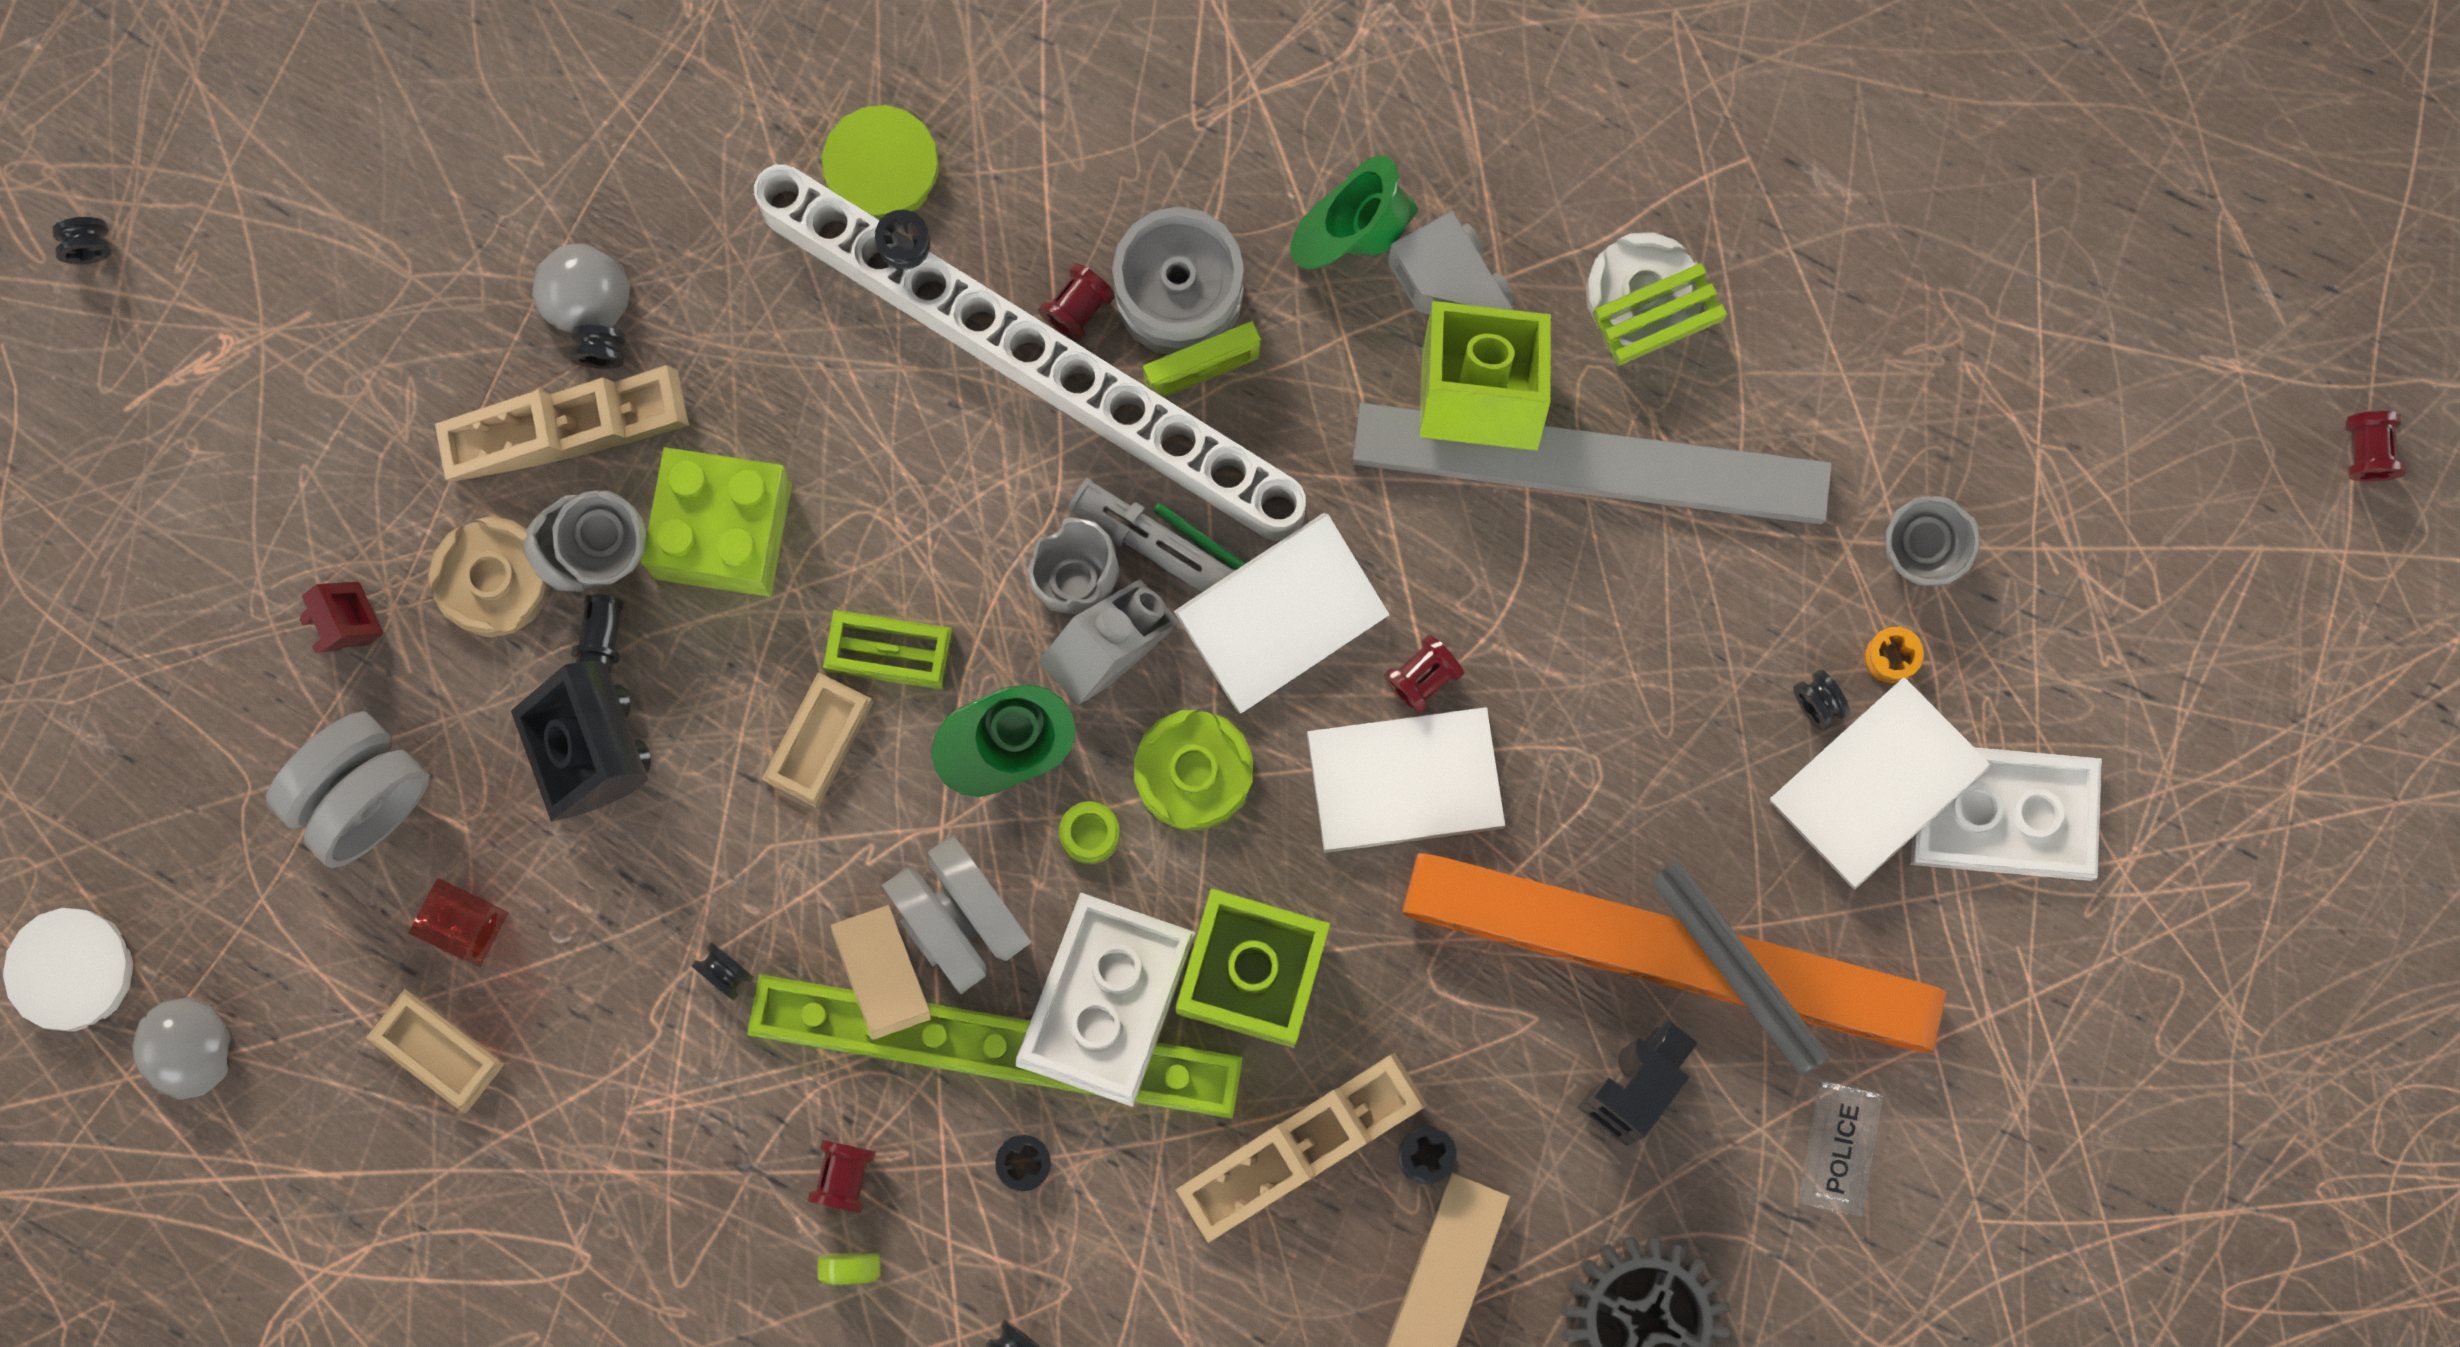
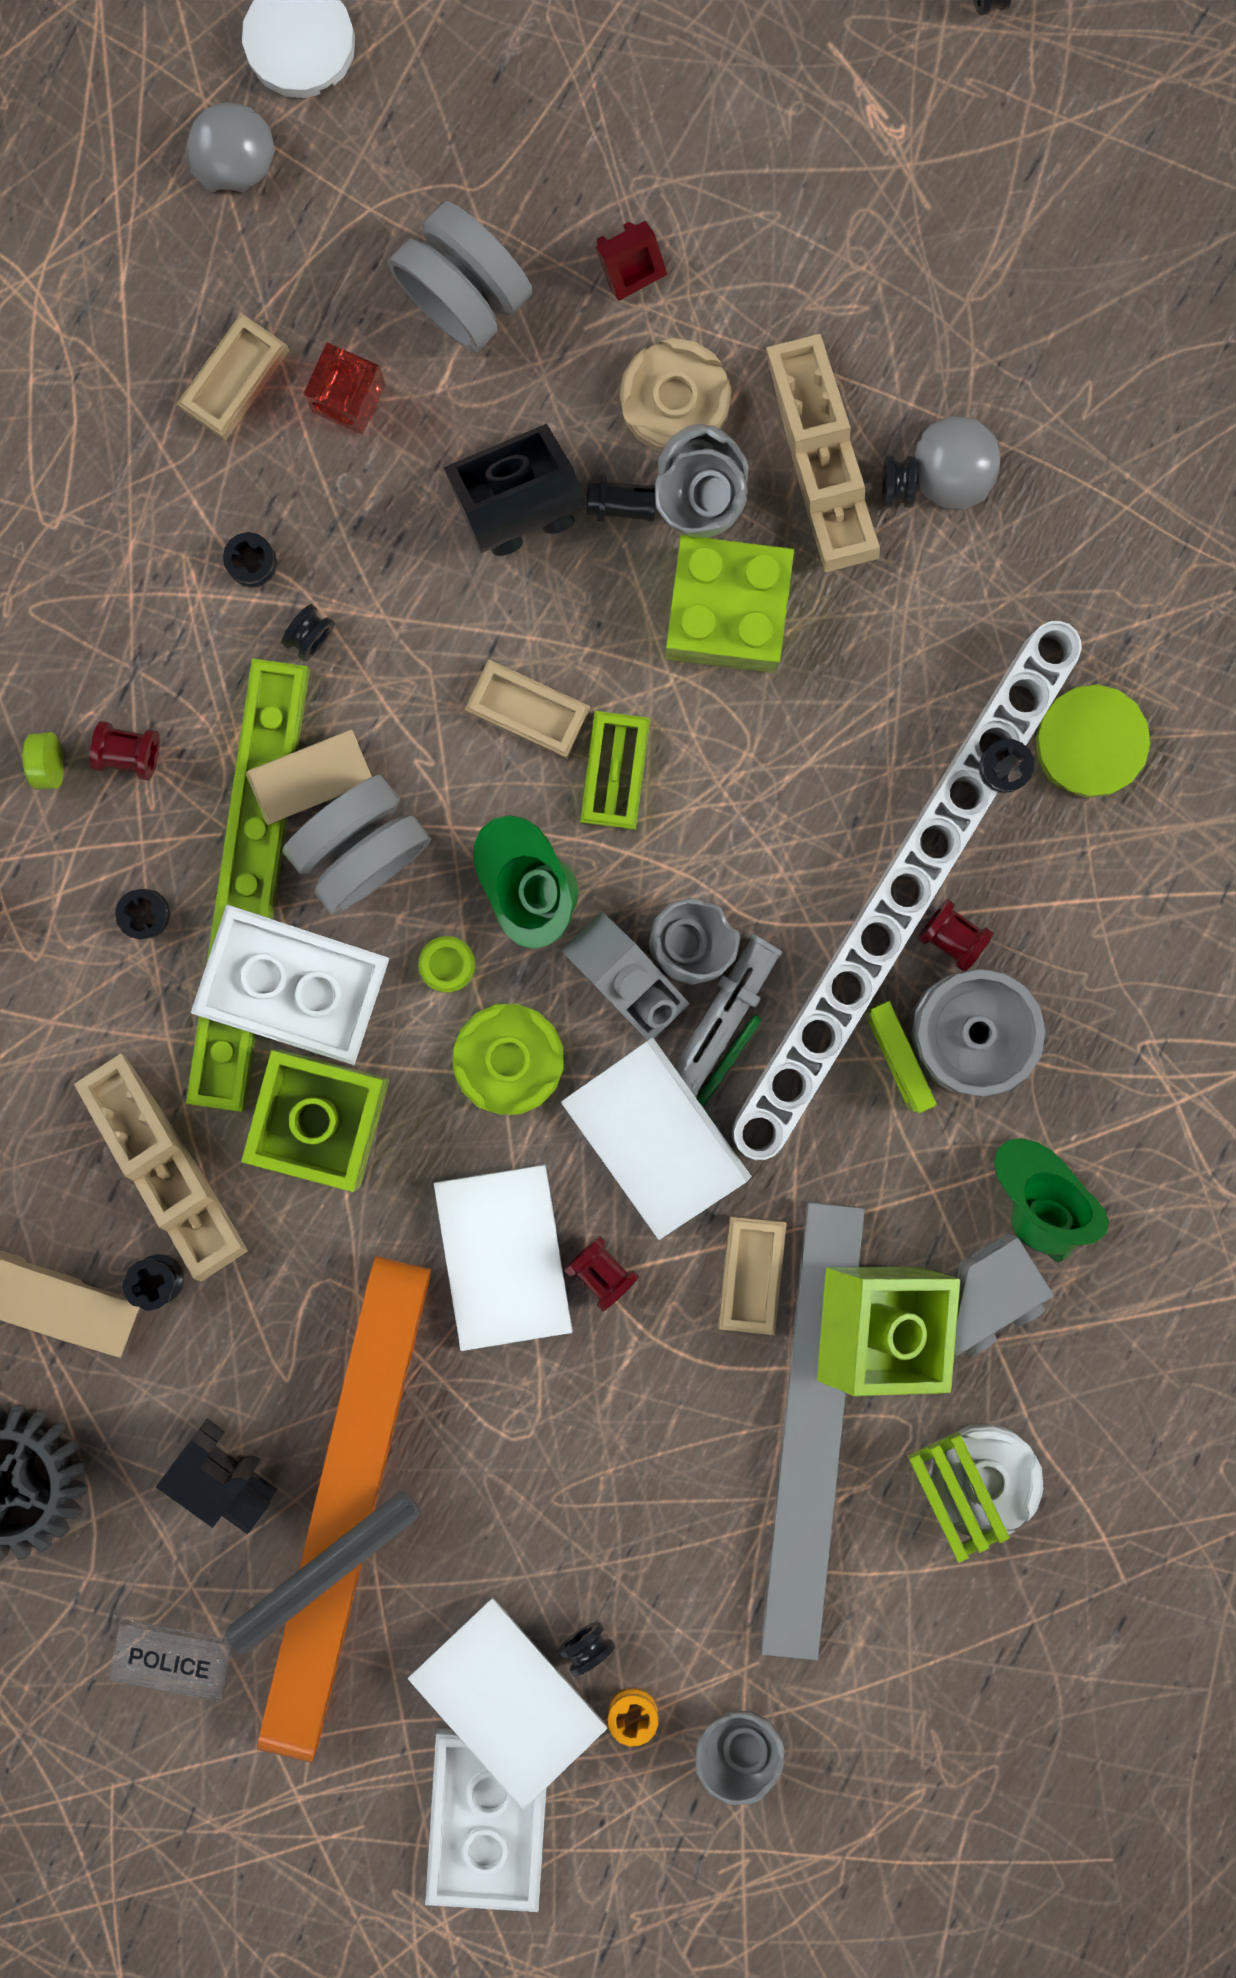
camera: 85 degrees right, 10 degrees up
(621, 1027) = (258, 545): none -> black bush
(1428, 521) = (752, 1275): none -> tan tile

